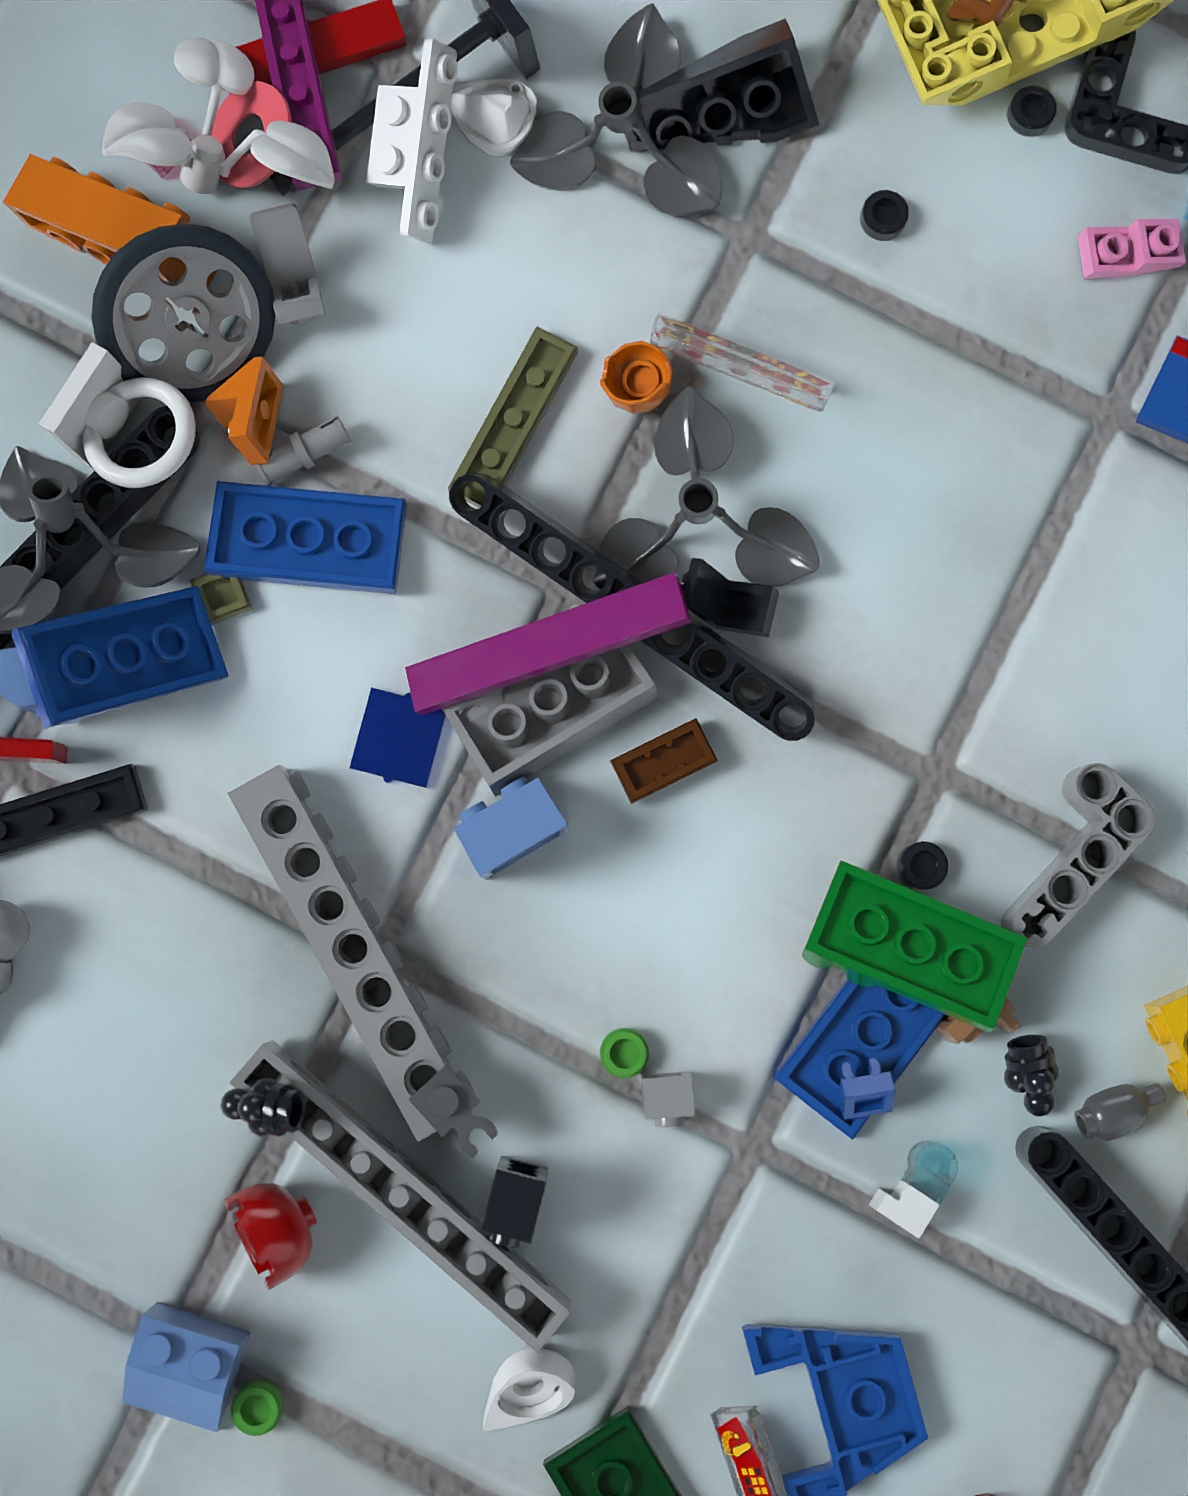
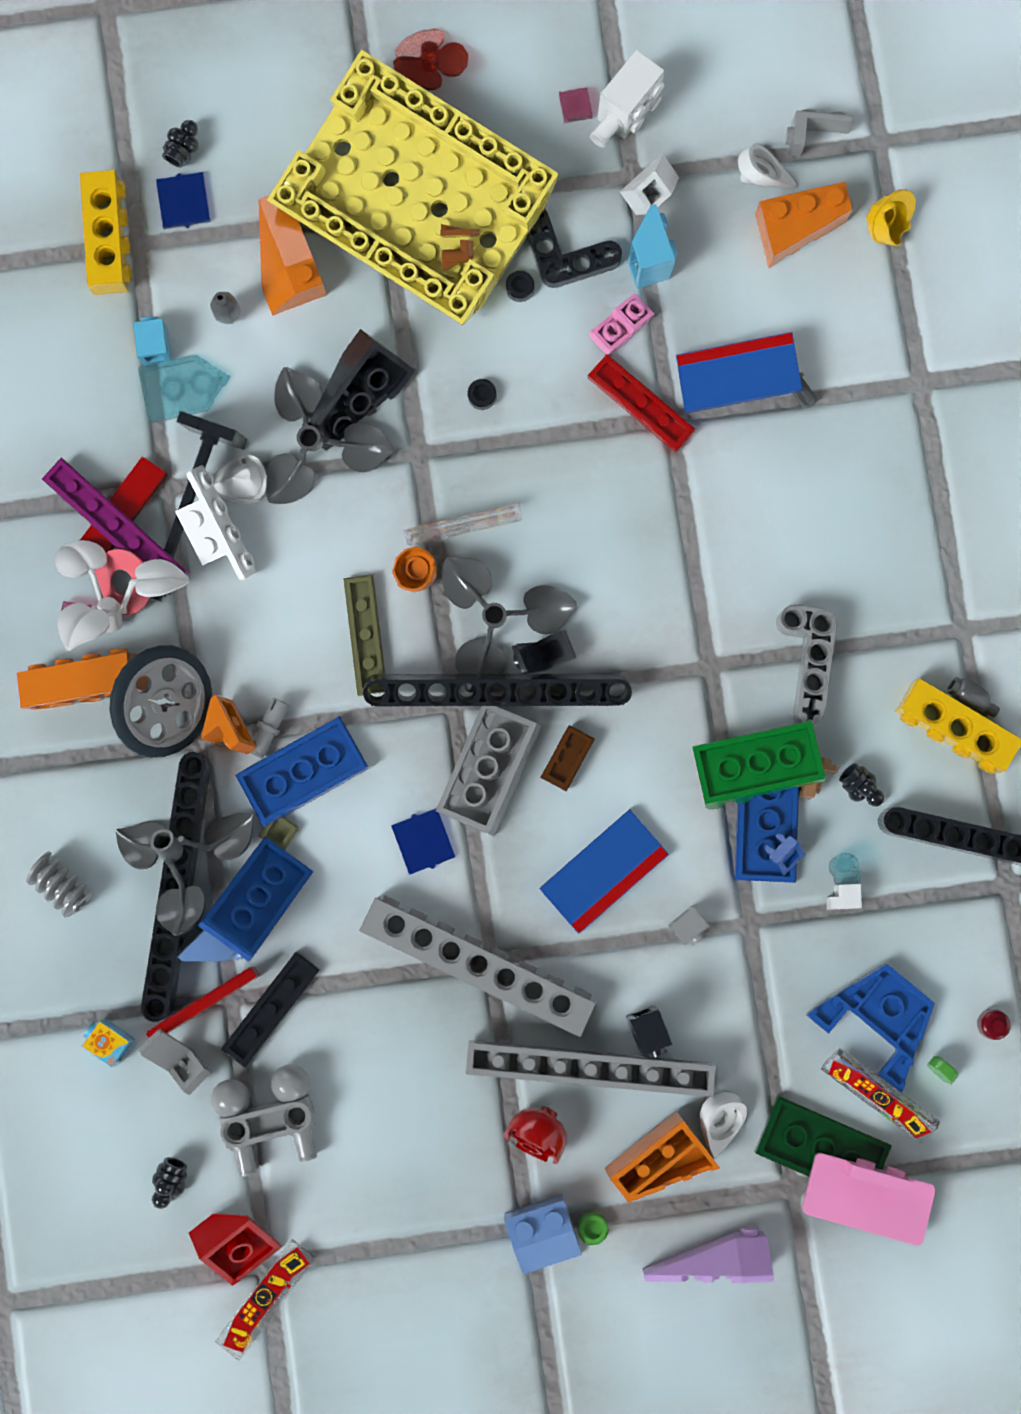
camera: 30 degrees left, 0 degrees up
(95, 408) = (150, 783): white tile -> none
(267, 1108) = (494, 1071): black piece -> none
(288, 264) = (194, 637): light grey bracket -> none
(407, 1383) = (660, 1159): none -> orange wedge
(448, 1104) = (582, 1006): dark grey plate -> none
(510, 827) = (514, 846): medium blue slope -> none
(548, 644) = (468, 741): magenta tile -> none
(606, 943) = (604, 871): none -> blue tile
(624, 1053) = (651, 920): bright green tile -> none
(922, 865) = (735, 719): black tile -> none
(1086, 368) = (641, 403): none -> red tile
(1117, 1110) = (916, 774): dark grey plant -> none

